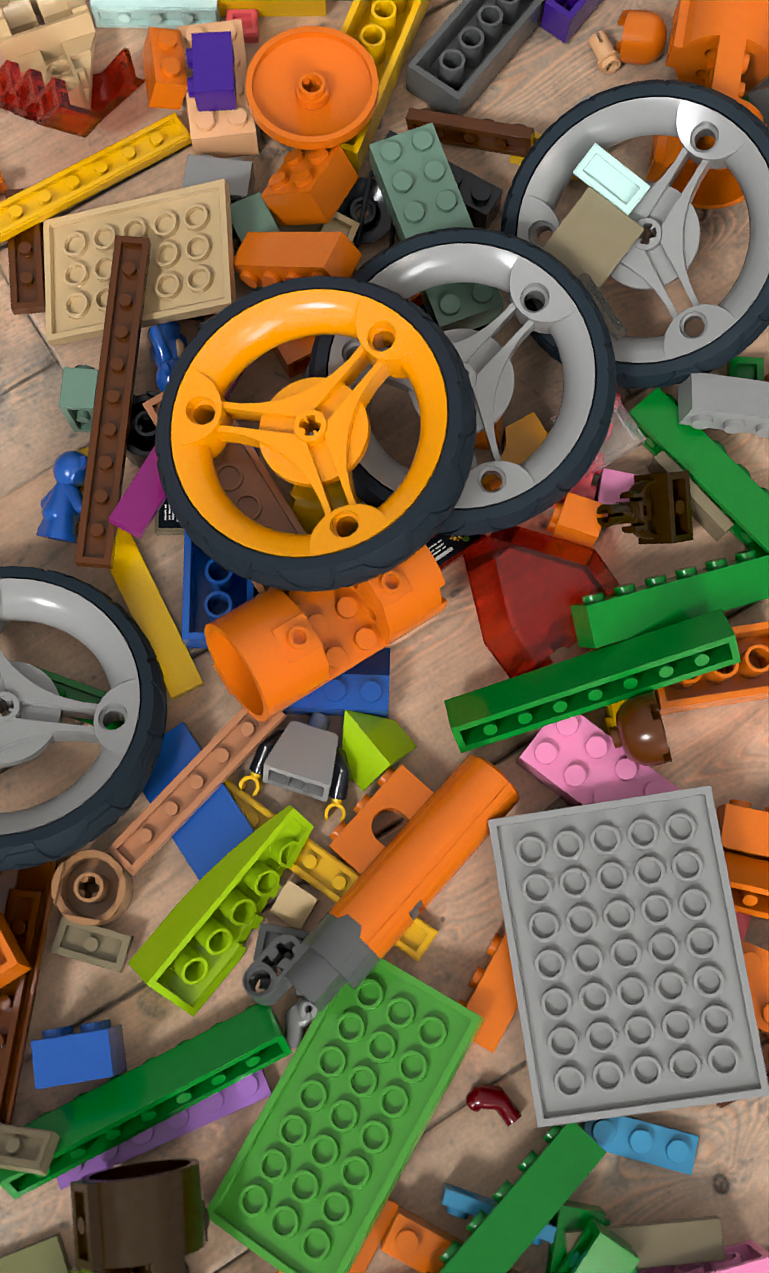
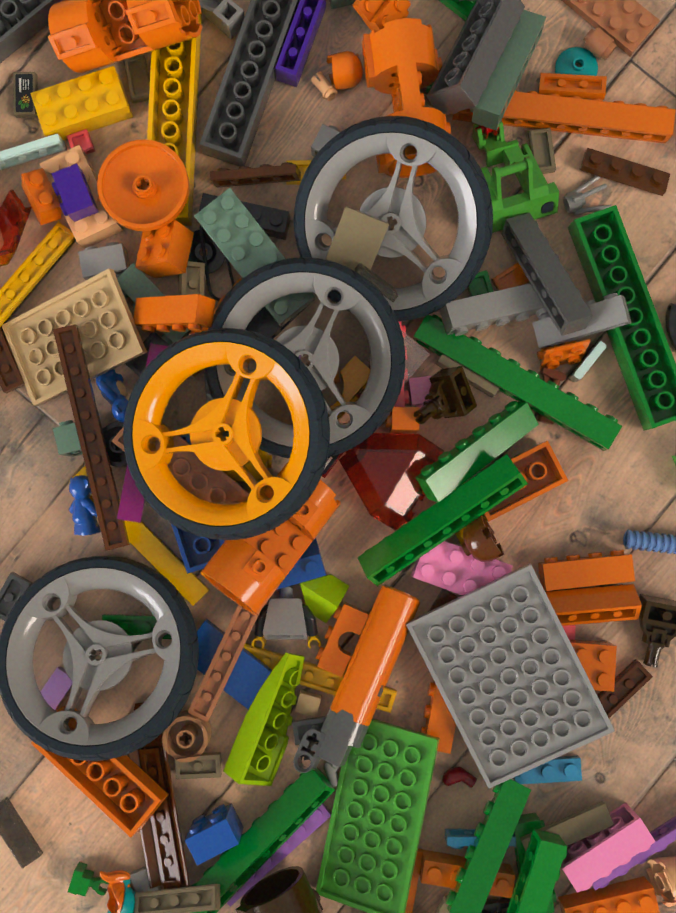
camera: 15 degrees left, 10 degrees up
(611, 179) = (358, 197): light aqua tile -> none

